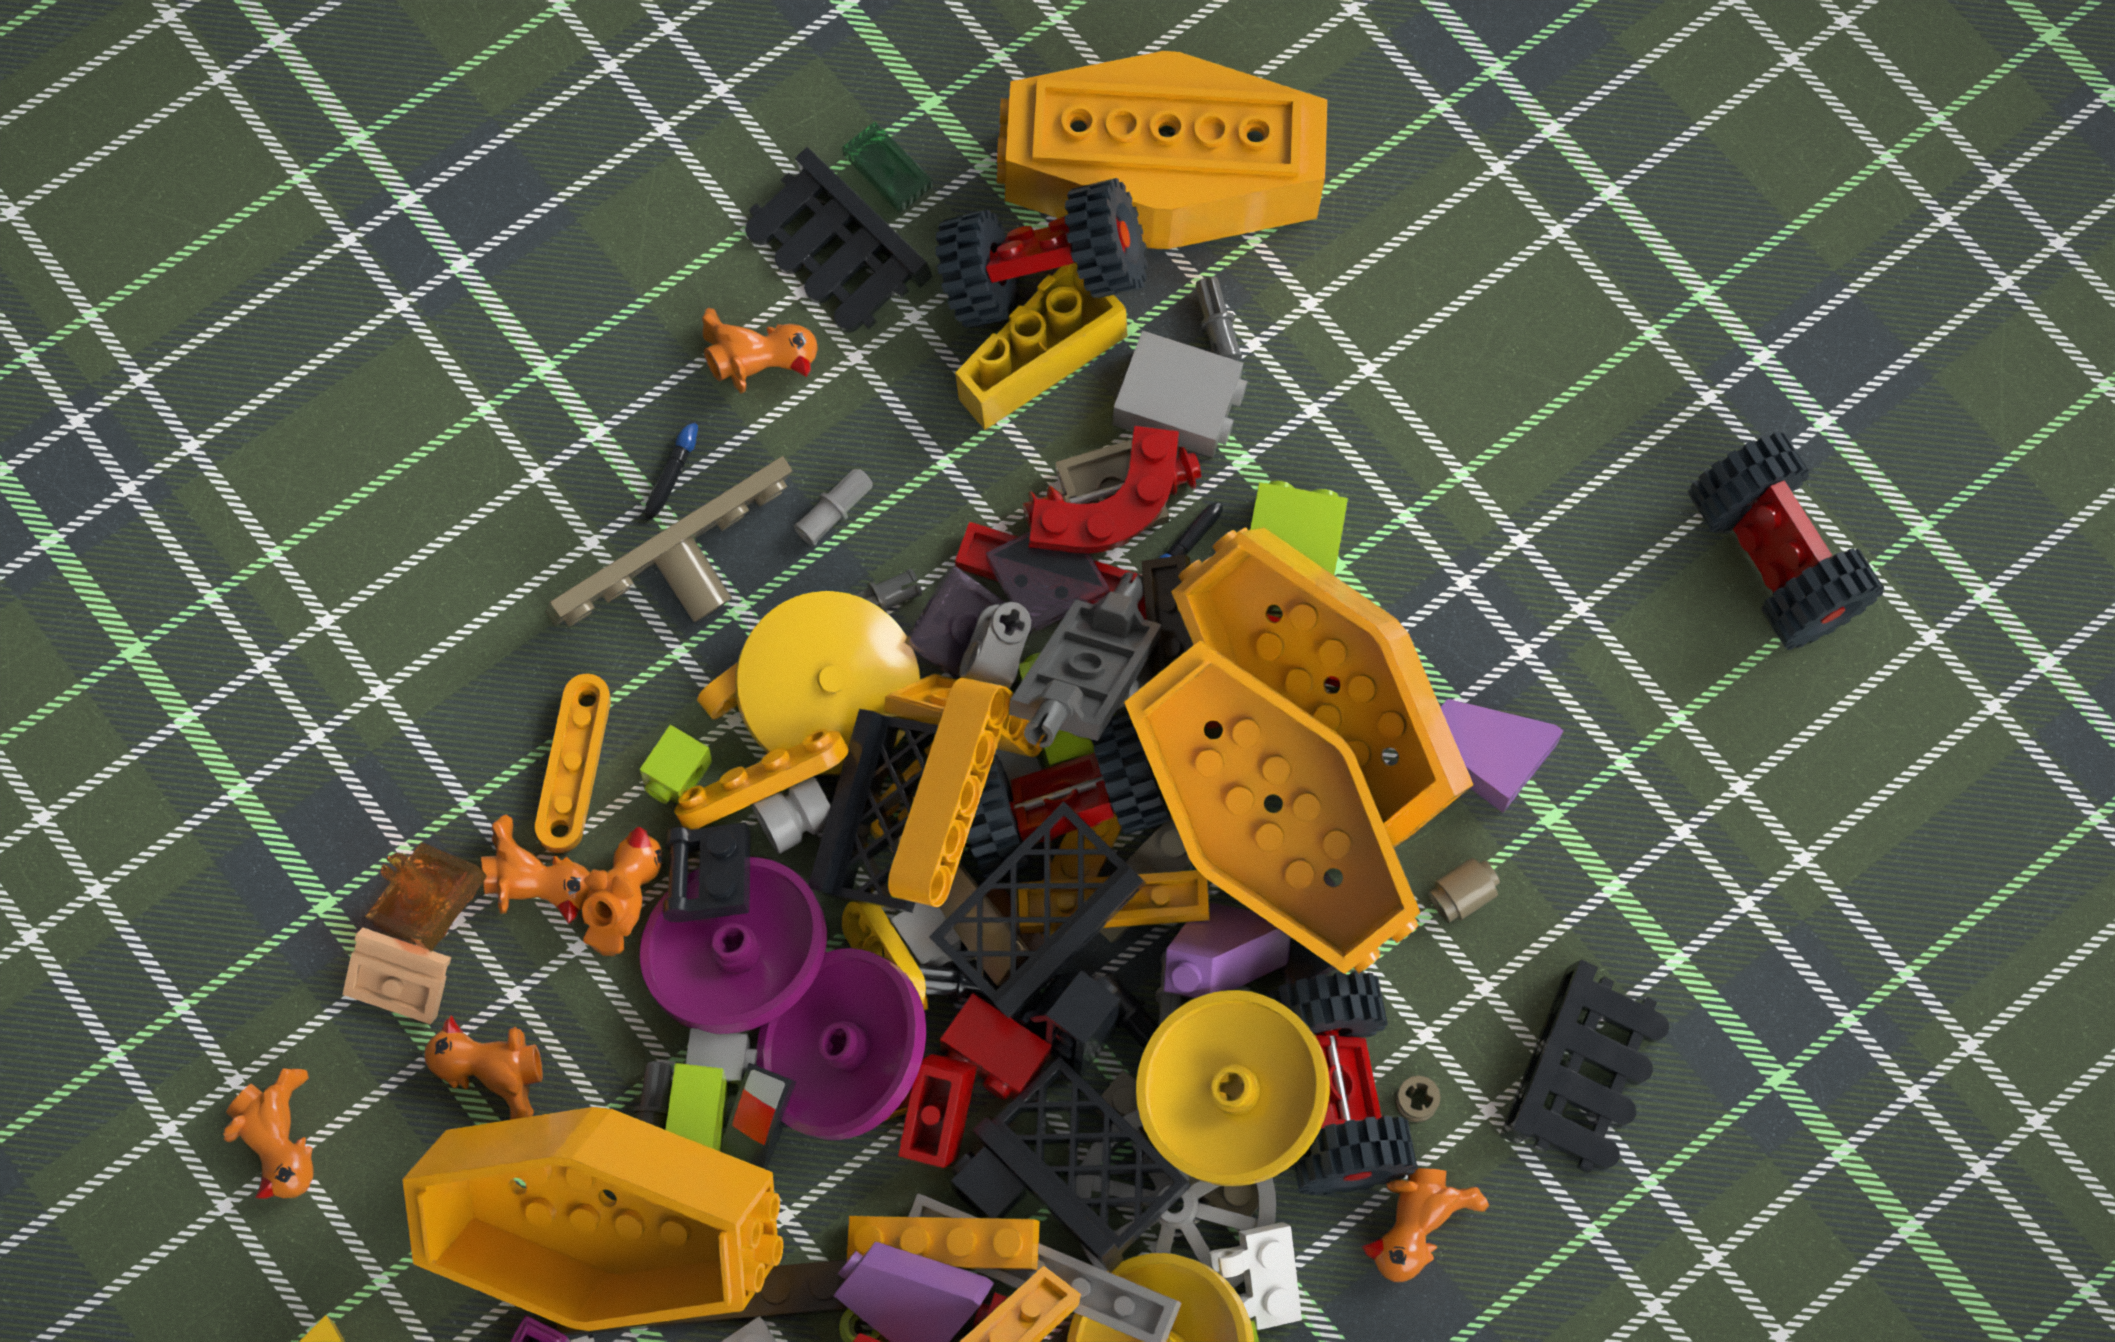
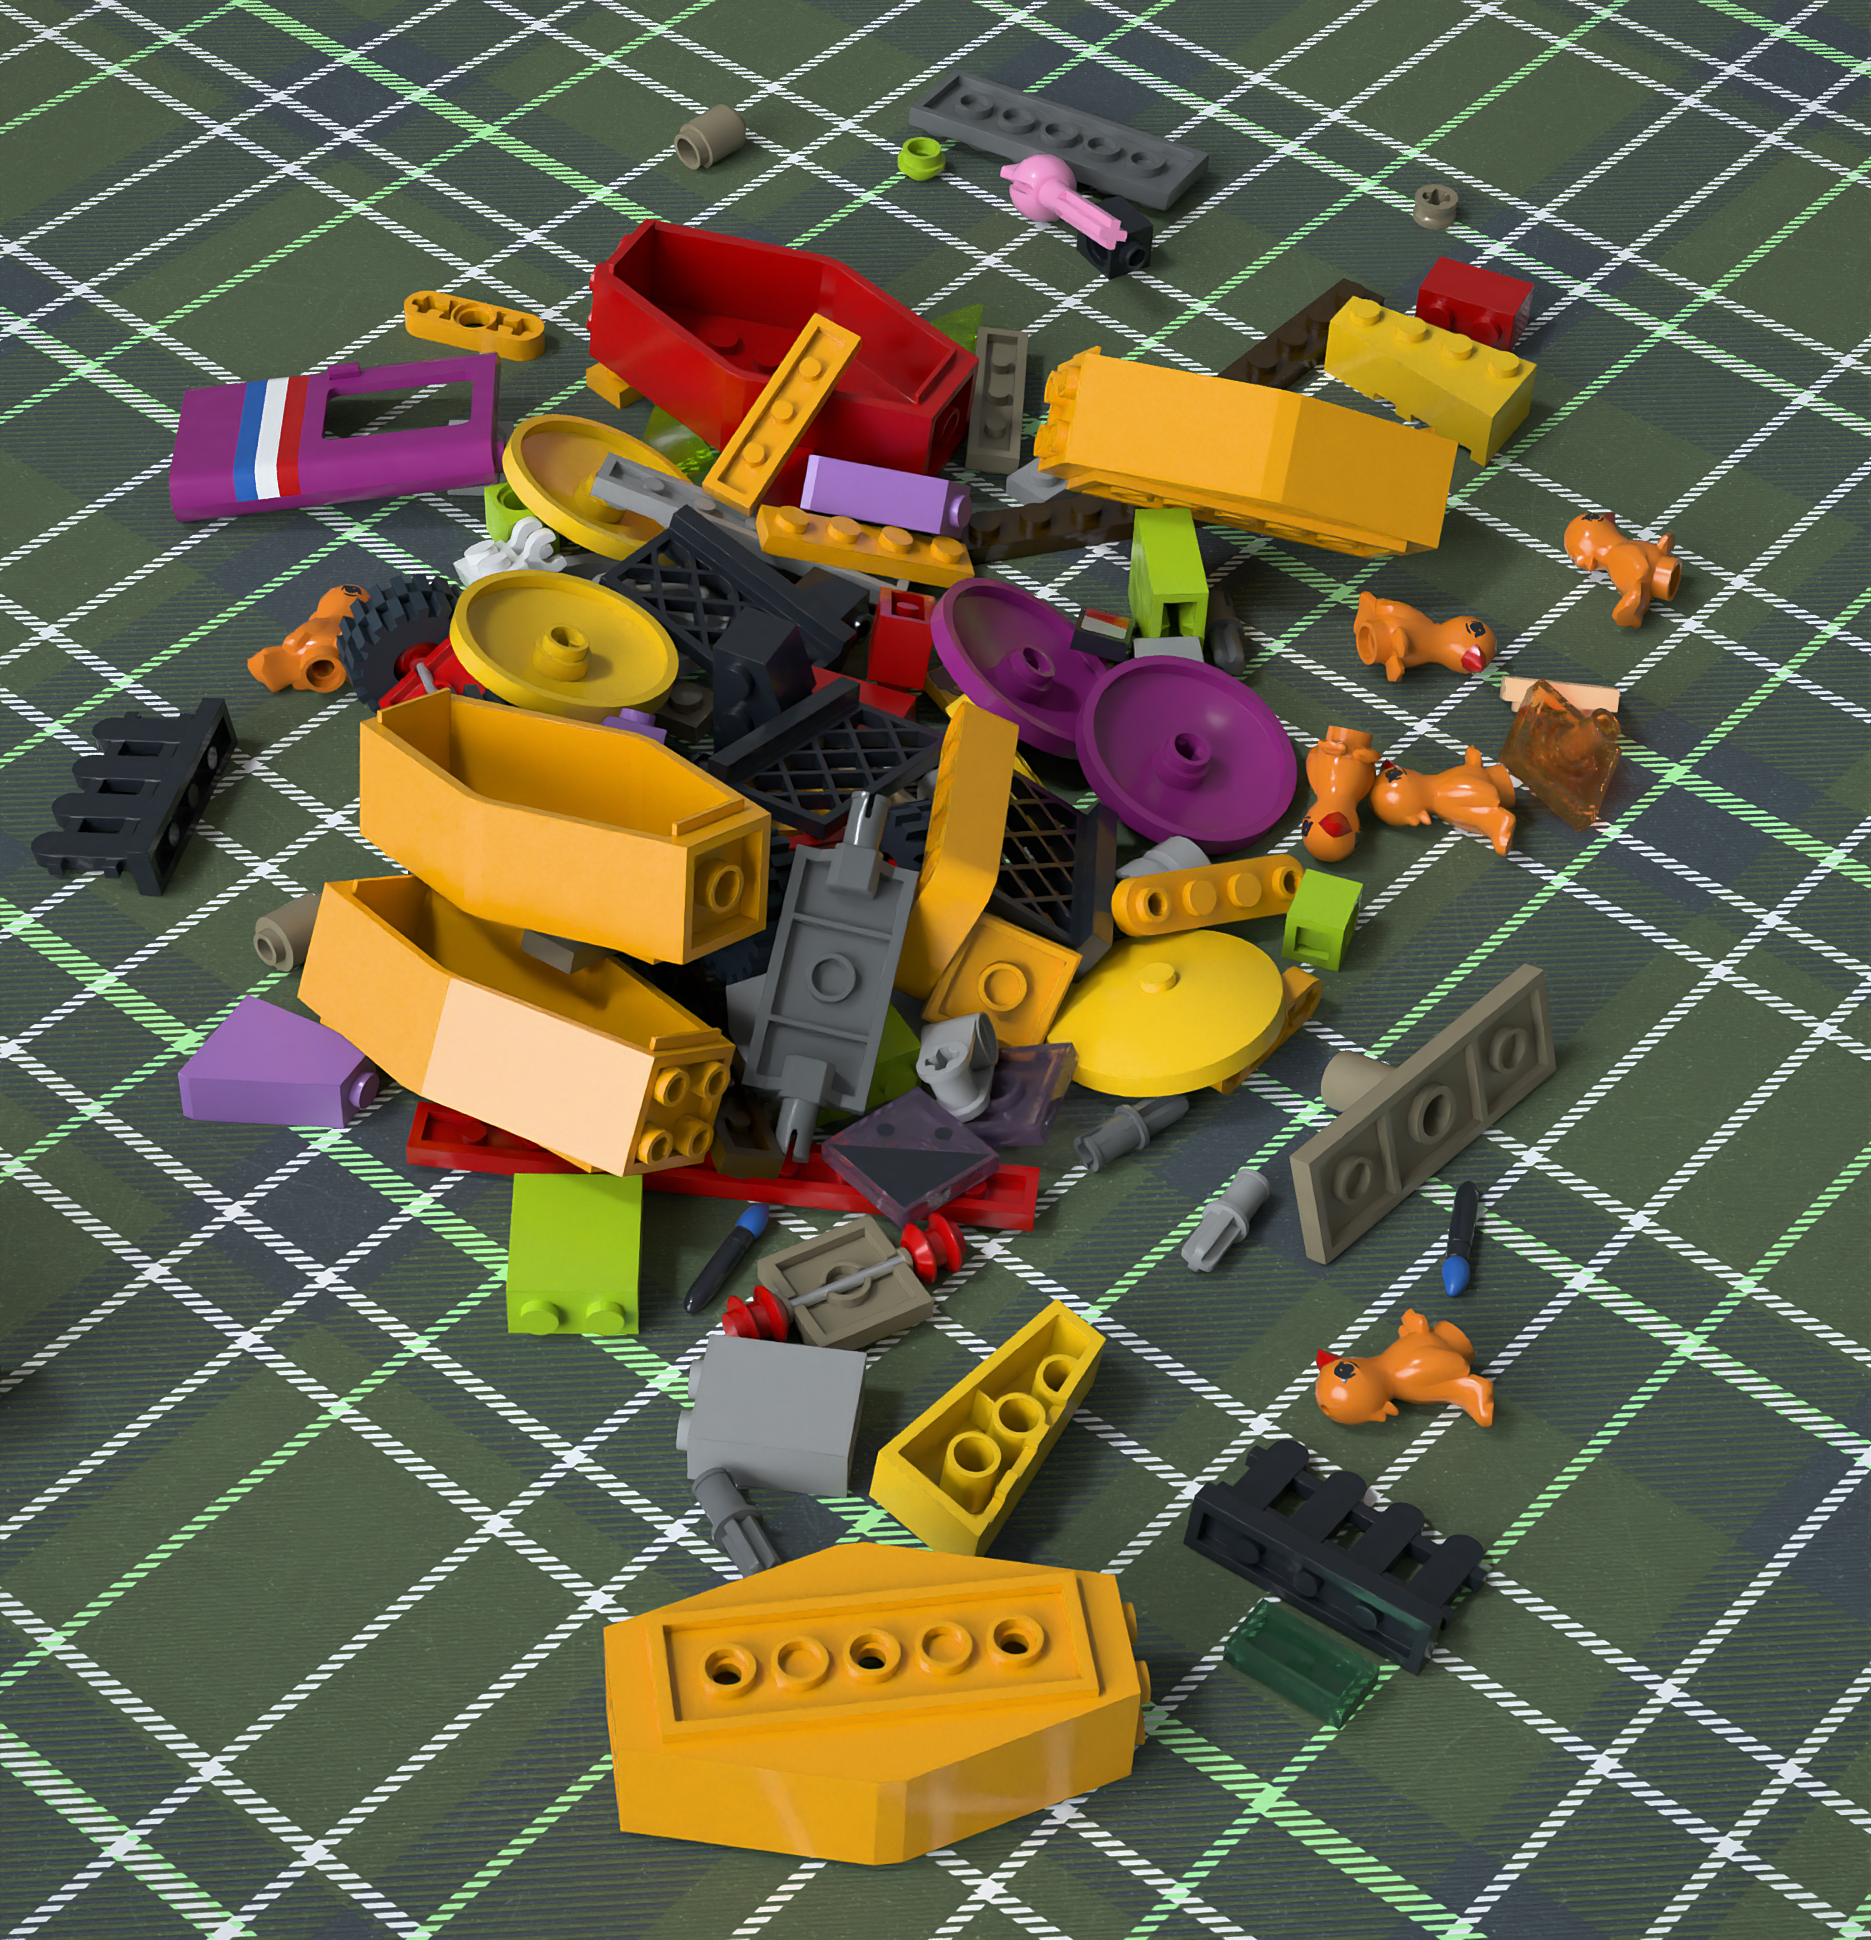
camera: 170 degrees right, 25 degrees down
(573, 763) = (1449, 914): light orange plate -> none
(722, 872) = (1224, 813): black plate -> none
(1096, 234) = (974, 1468): black plate -> none
(1120, 517) = (829, 1207): red plate -> none
(1403, 1102) = (333, 739): dark tan bush -> none

